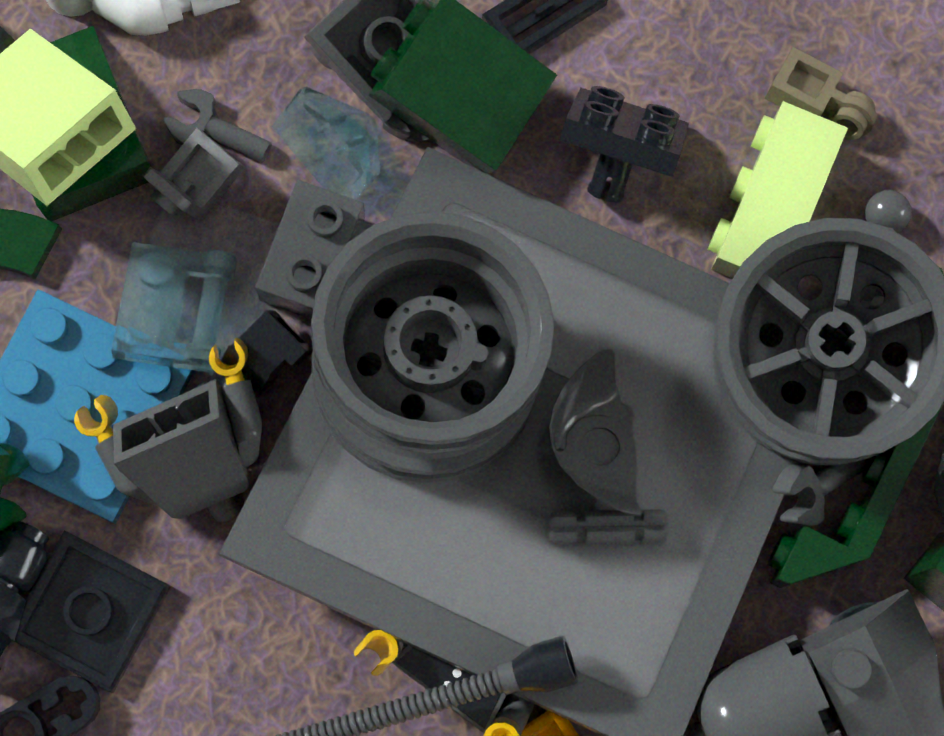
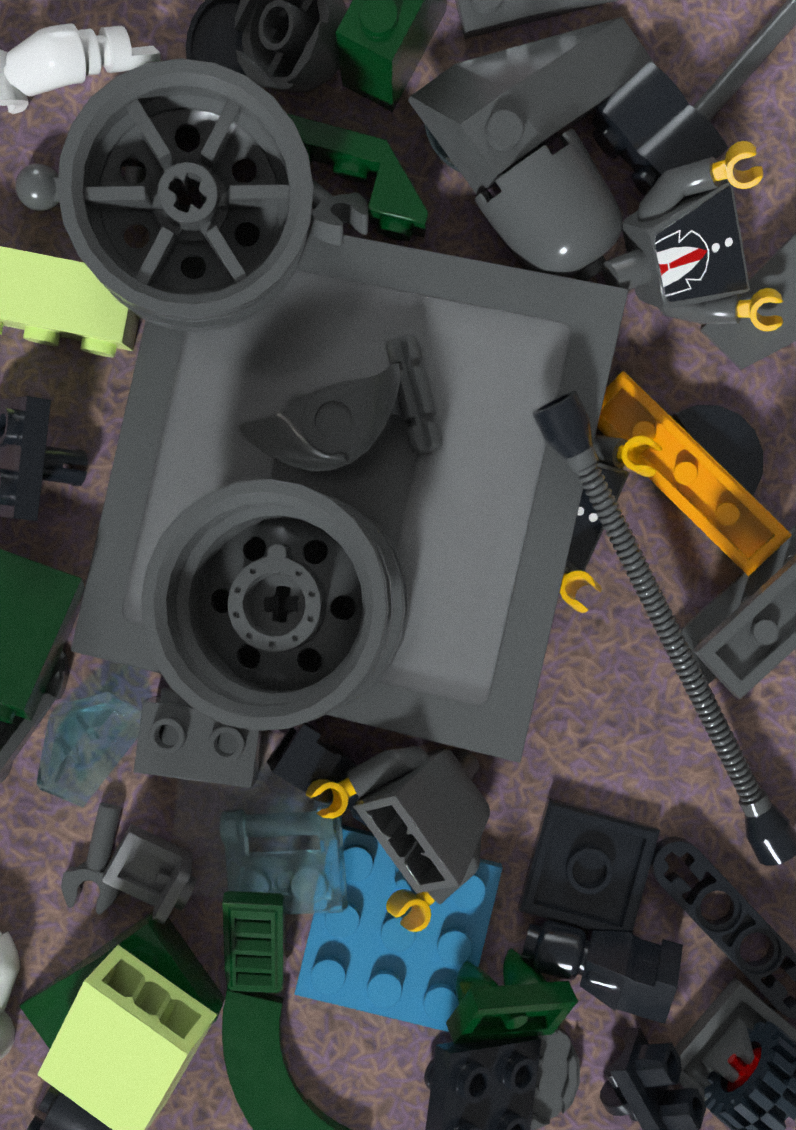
camera: 95 degrees left, 10 degrees up
(96, 257) = (254, 941): none -> dark green slope

